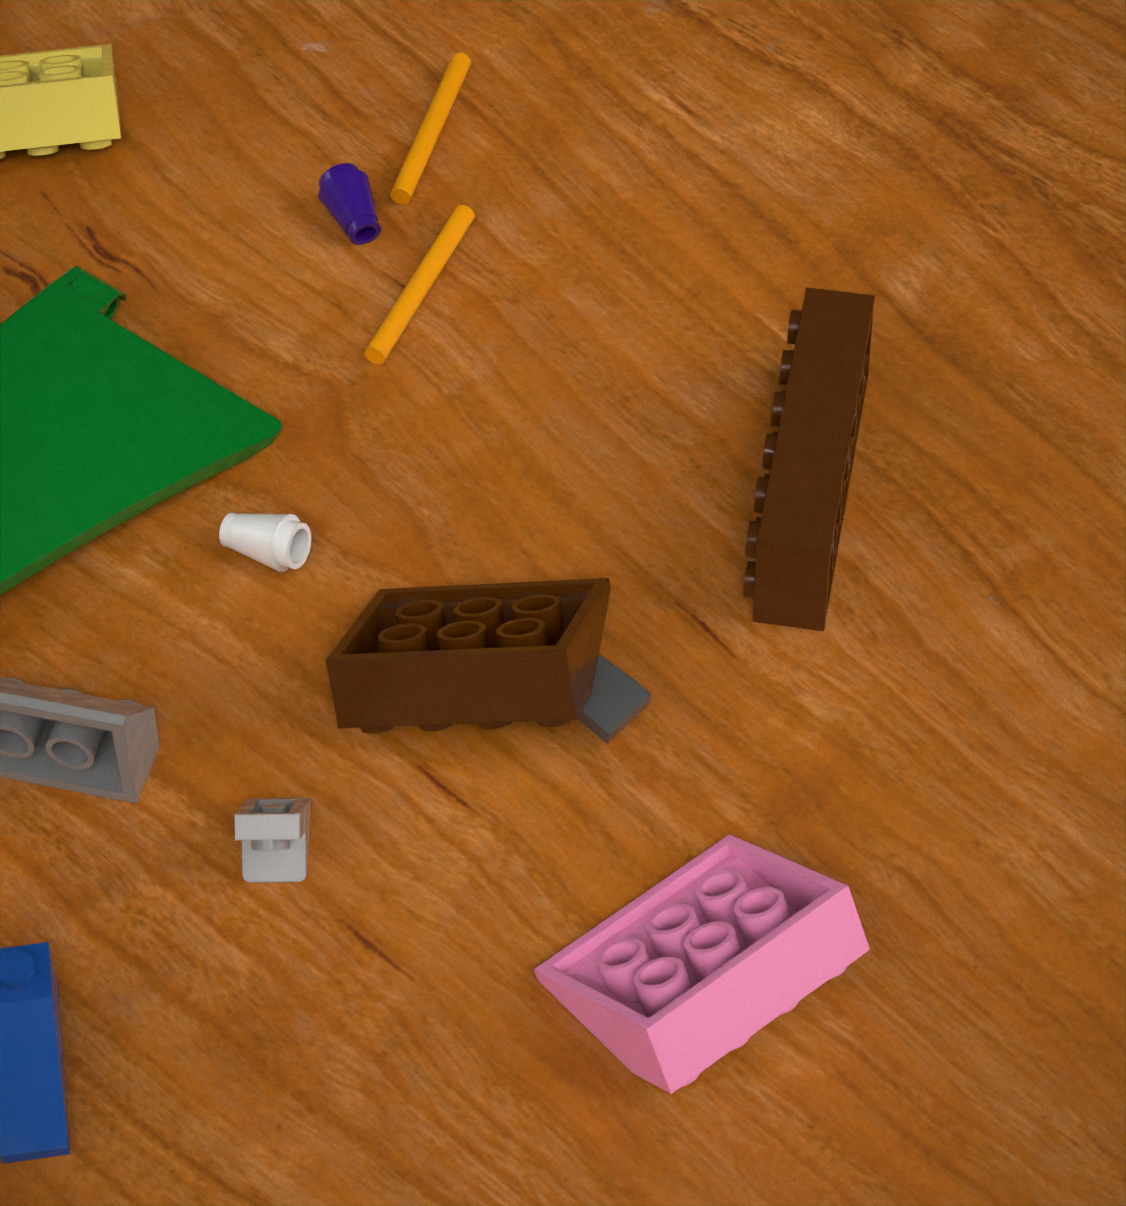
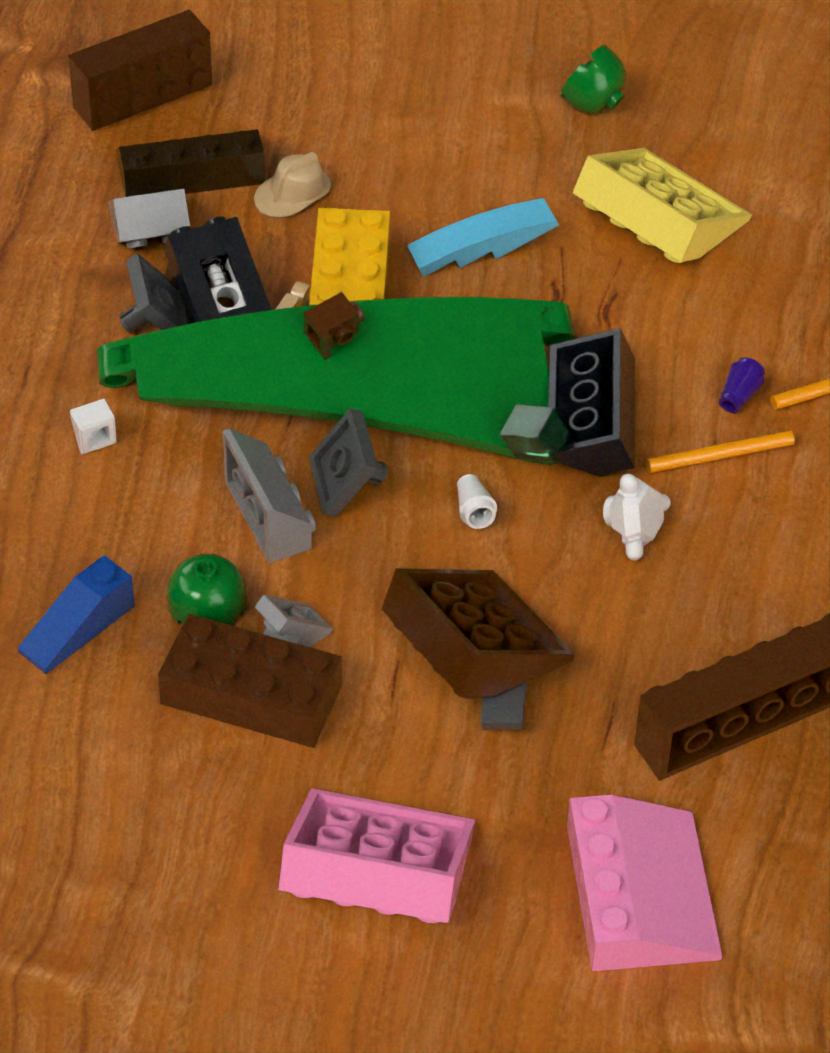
camera: 50 degrees right, 0 degrees up
(89, 618) = (345, 463): none -> dark grey tile
(130, 891) = (206, 588): none -> green cylinder
(248, 336) = (595, 400): none -> black slope
(251, 408) = (534, 433): none -> clear green brick
(321, 925) = (250, 680): none -> reddish brown brick
(445, 407) = (635, 513): none -> white rock
(960, 739) = (640, 884): none -> bright pink slope

